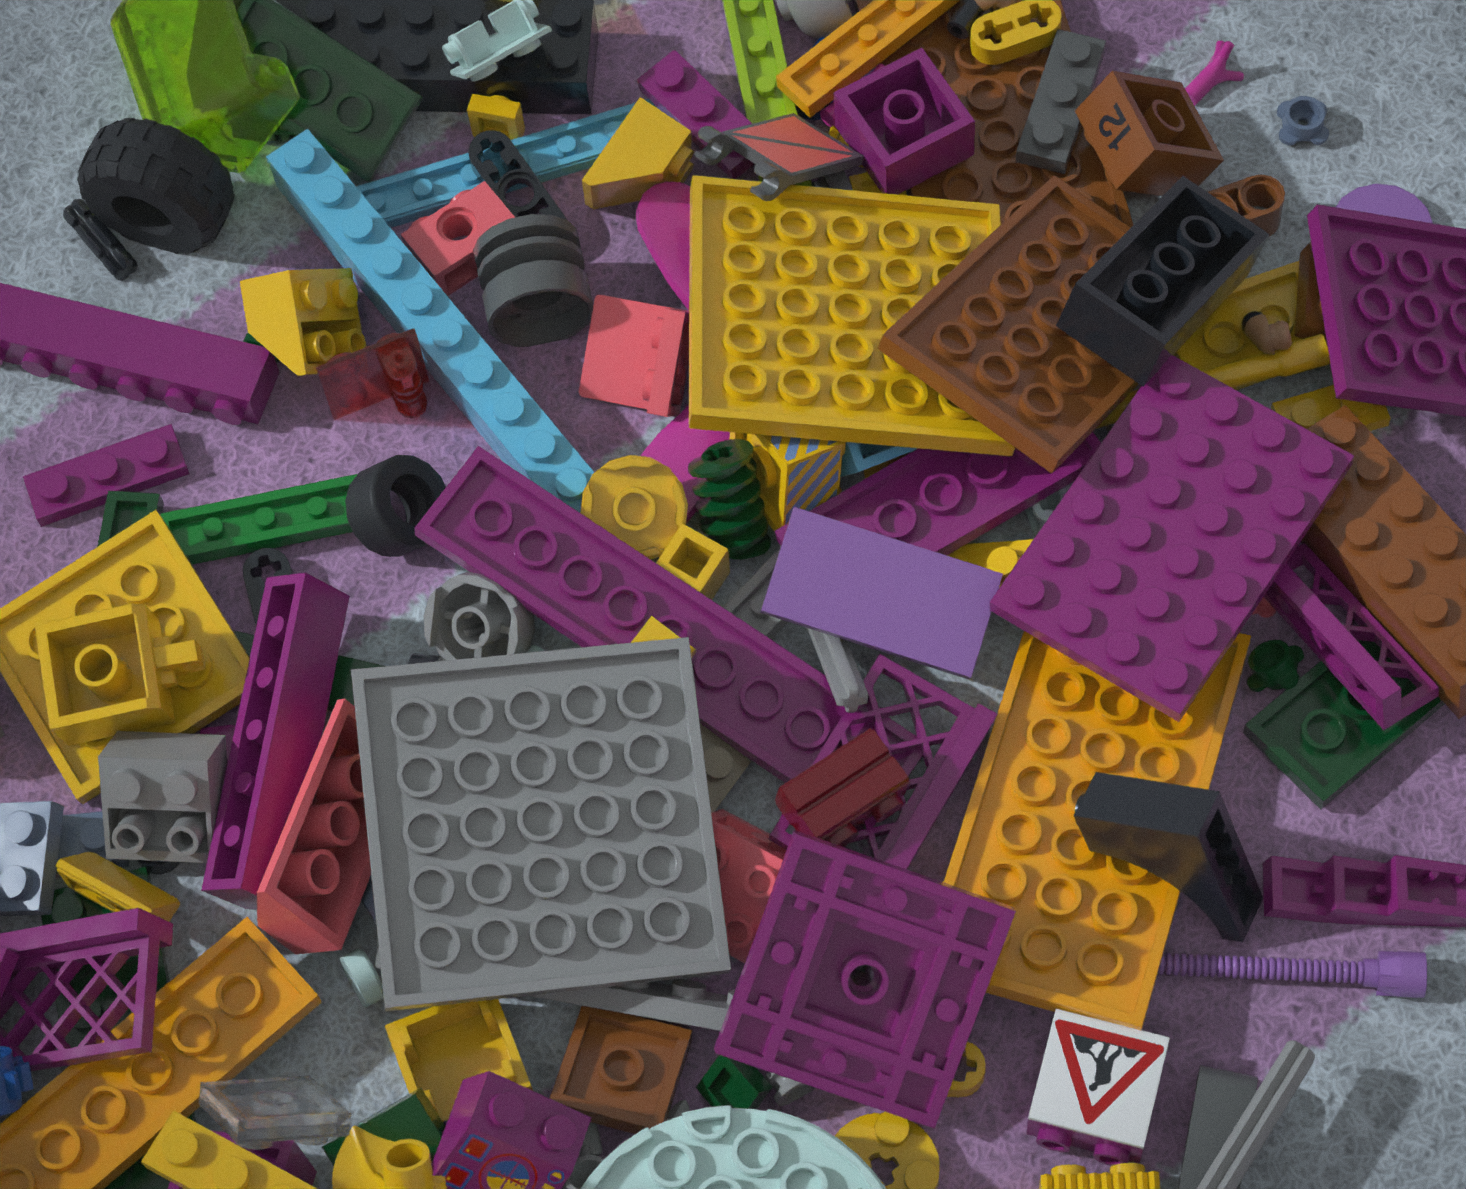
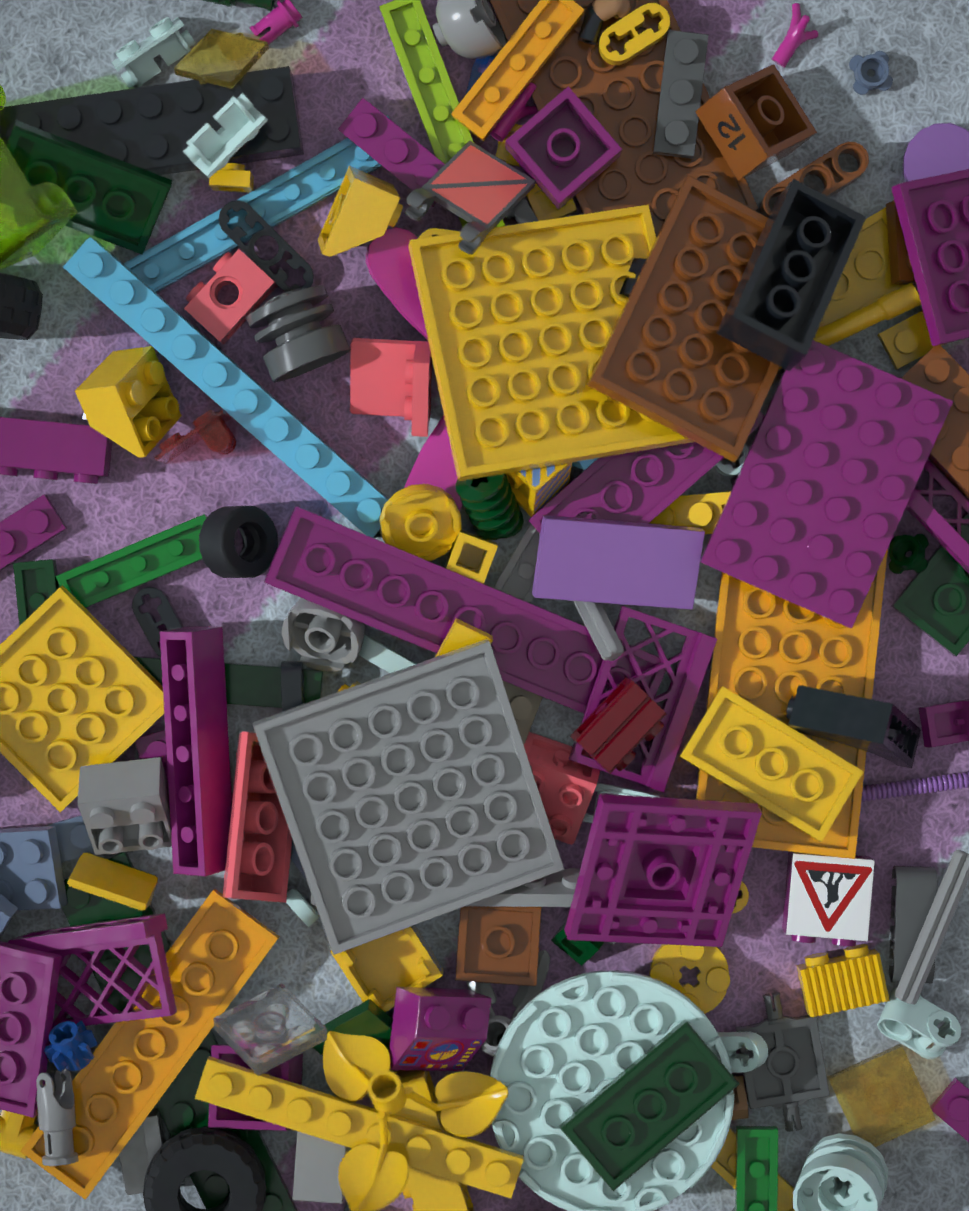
camera: 15 degrees left, 25 degrees up
(110, 672) = (65, 730): yellow hinge -> none
(1061, 883) = (771, 764): none -> yellow plate
(1264, 335) = (863, 288): medium nougat arm -> none

